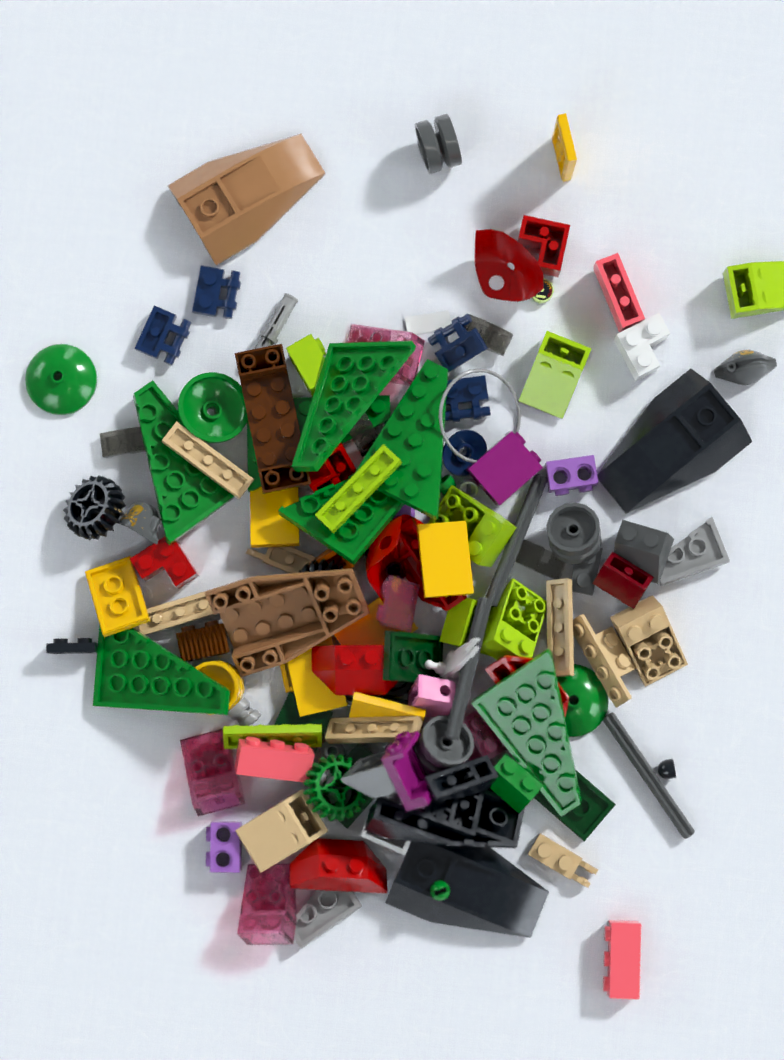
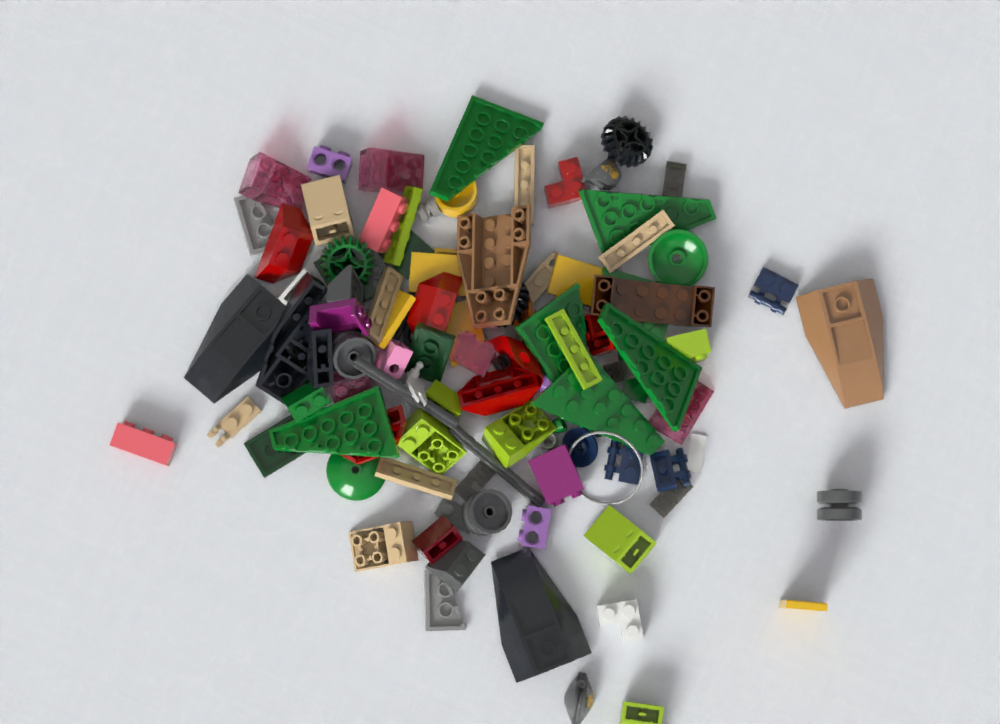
camera: 105 degrees right, 0 degrees up
(61, 646) = (525, 85): black plate -> none
(72, 390) = (737, 160): green dish -> none
(117, 596) = (551, 139): yellow tile -> none
(156, 332) = (755, 233): dark blue plate -> none
(203, 642) = (494, 195): reddish brown brick -> none
(277, 322) = (731, 330): light grey pin -> none
(437, 885) = (246, 316): green hinge -> none
(445, 559) = (497, 401): yellow tile -> none
(493, 253) = (731, 521): red piece -> none
(546, 294) = (693, 553): tile -> none
(549, 238) = (733, 571): red brick -> none
(606, 657) = (381, 508): tan bracket -> none
(618, 292) = (671, 613): coral brick -> none
(648, 775) = (278, 511): dark grey axle -> none
(667, 769) = (278, 527): black hinge -> none

